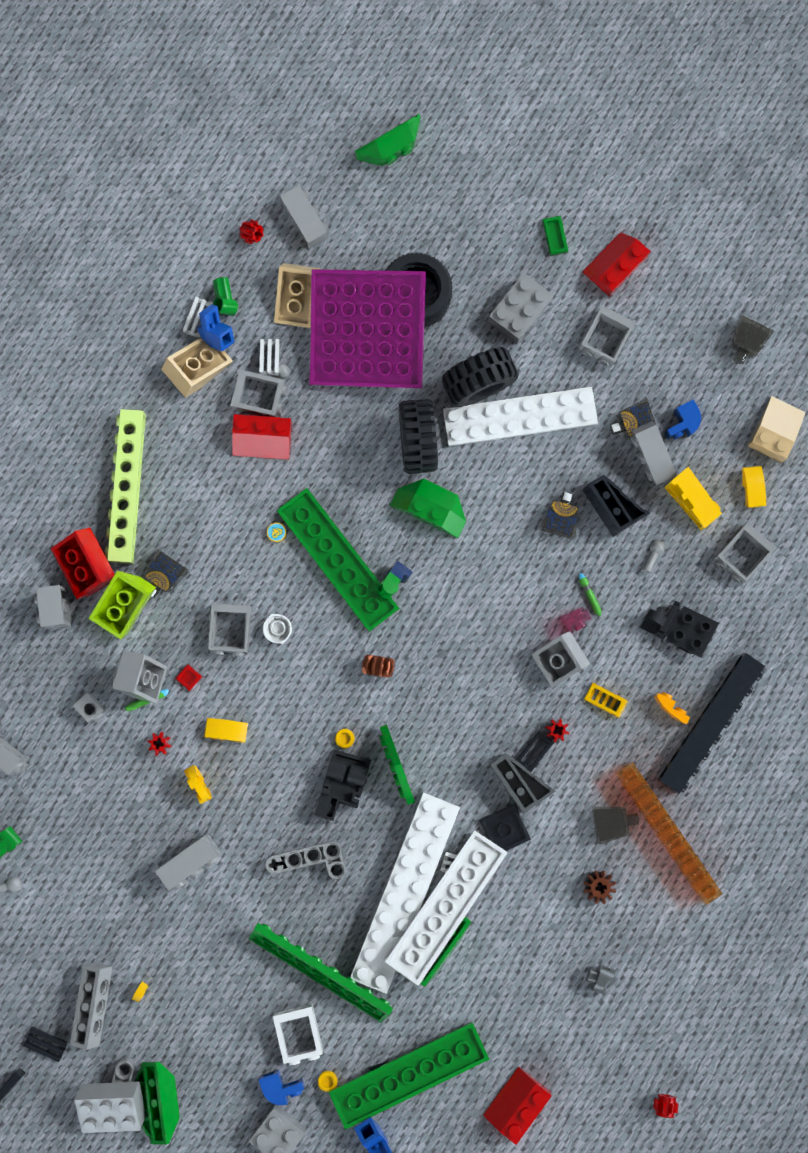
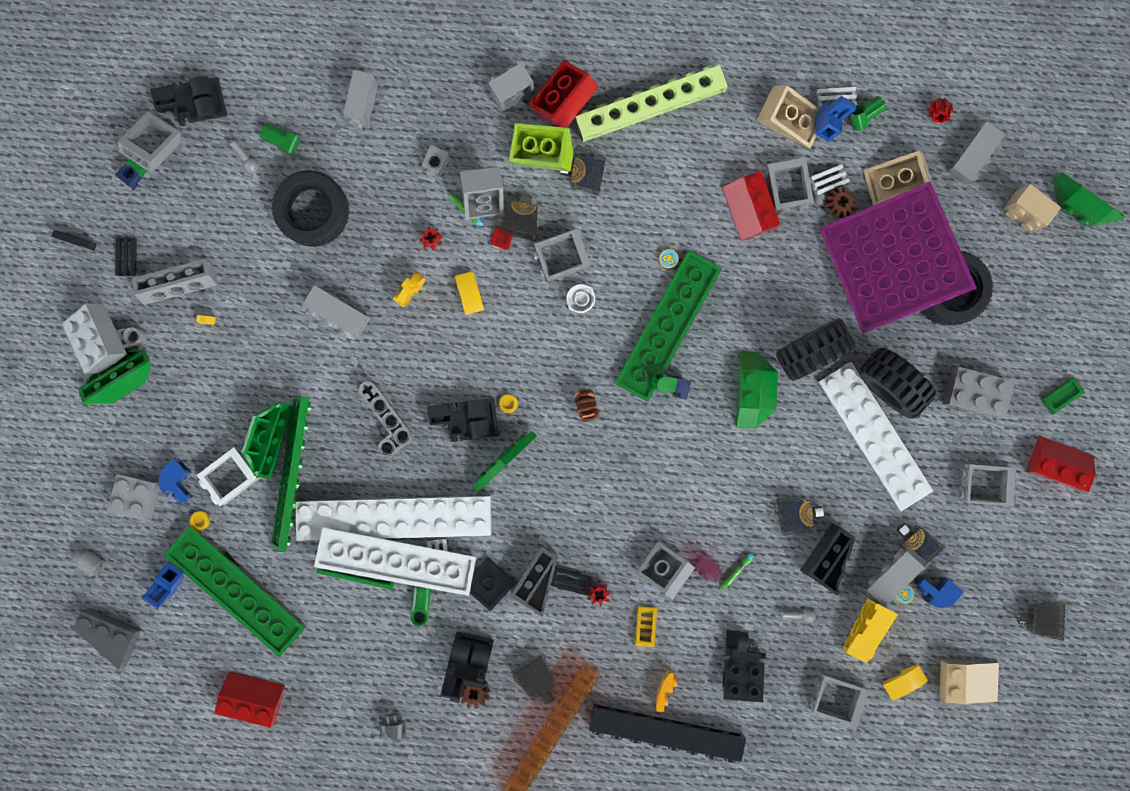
camera: 70 degrees right, 5 degrees up
(55, 858) = (289, 191): none -> black tyre
(179, 651) = (521, 219): none -> clear smoke torso
(278, 981) = (266, 438): none -> green wedge
(288, 359) = (833, 200): none -> copper gear
(375, 191) = (1031, 208): none -> tan brick
(495, 901) = (421, 603): none -> green piece
(570, 882) = (466, 664): none -> black plate
(675, 452) = (906, 595): none -> tile

